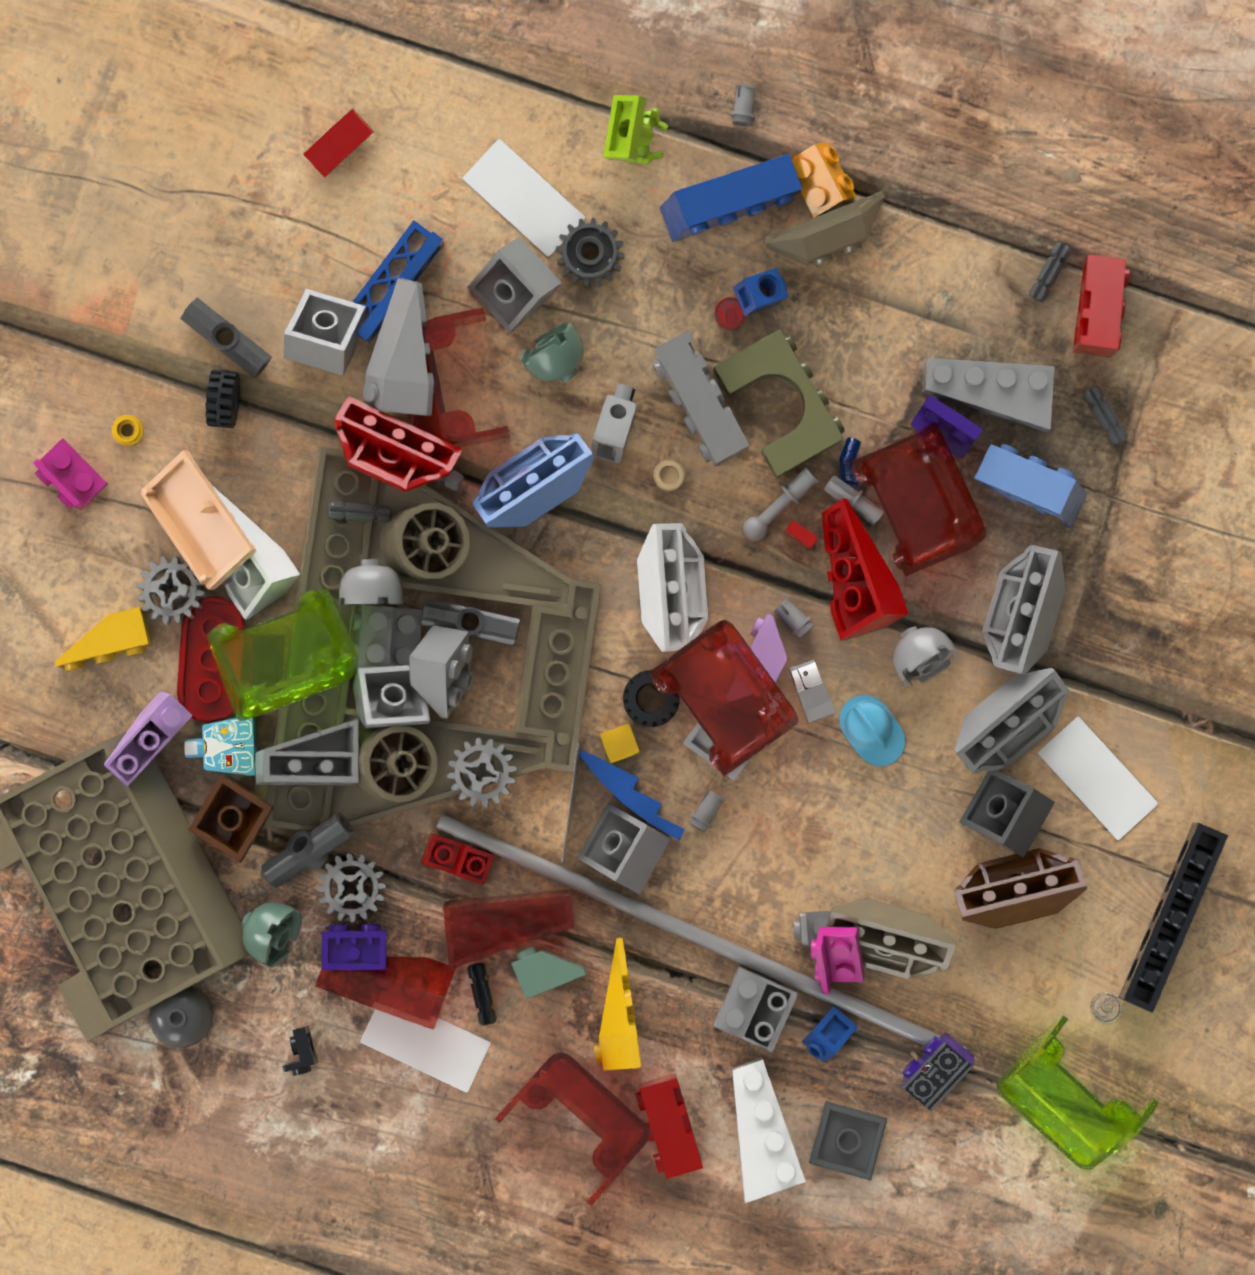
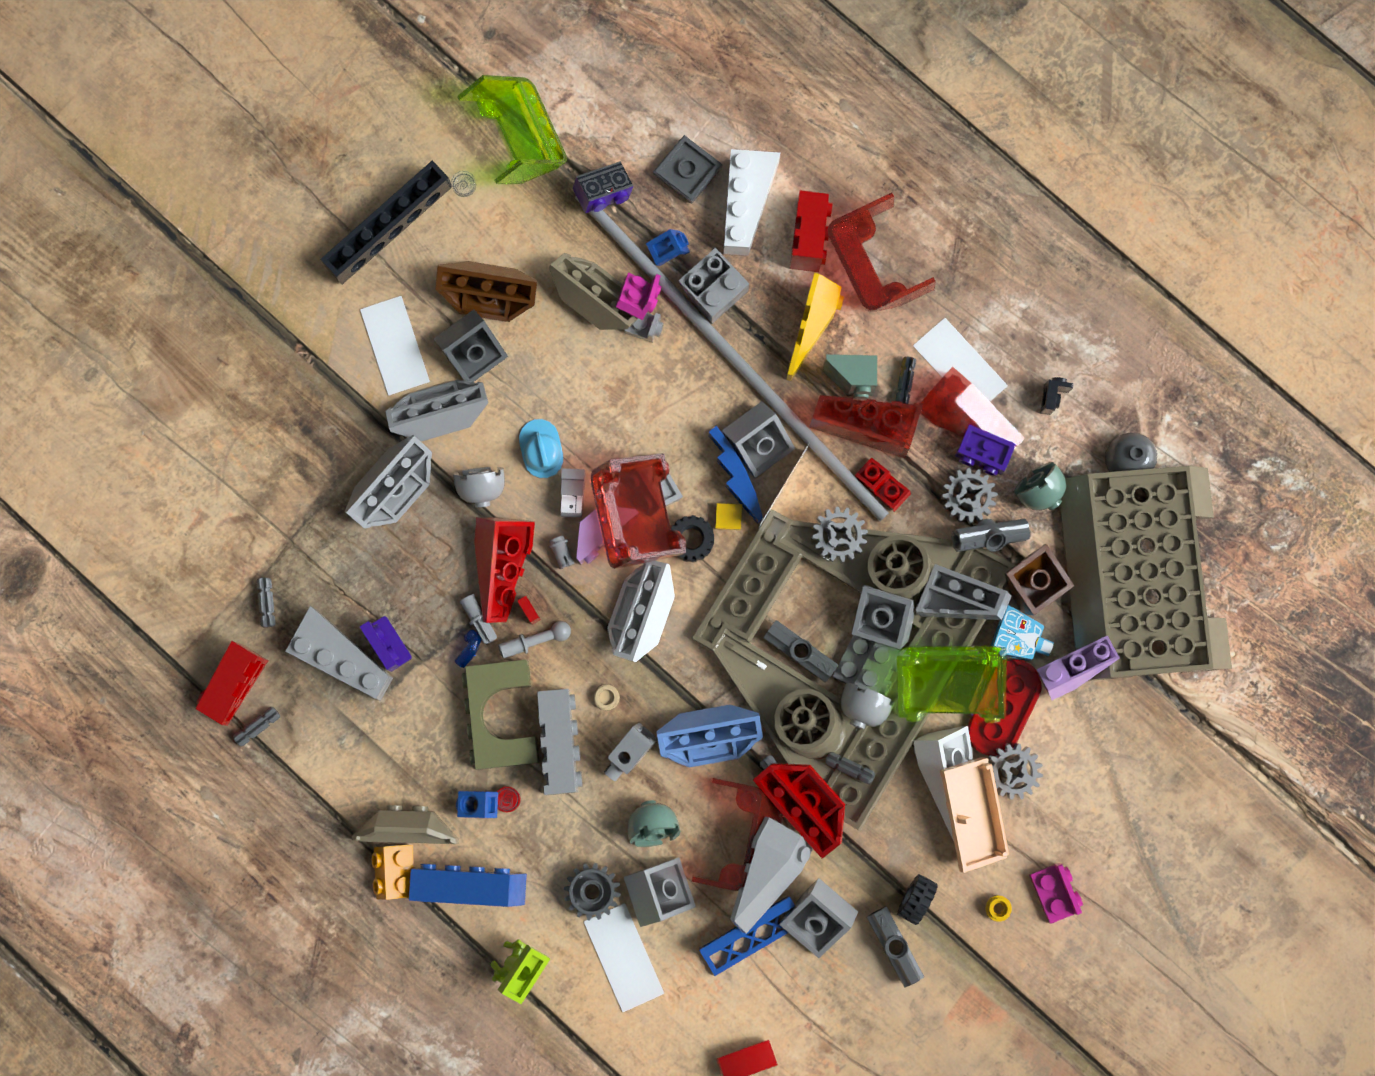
camera: 160 degrees left, 5 degrees down
(115, 634) = (1067, 756): yellow slope -> none
(442, 668) = (837, 623): light grey slope -> none
(706, 811) = (687, 440): light grey pin -> none
(743, 105) = (426, 955): light grey pin -> none
(922, 498) = (428, 596): clear red windscreen -> none
(1031, 483) = (343, 575): medium blue wedge -> none

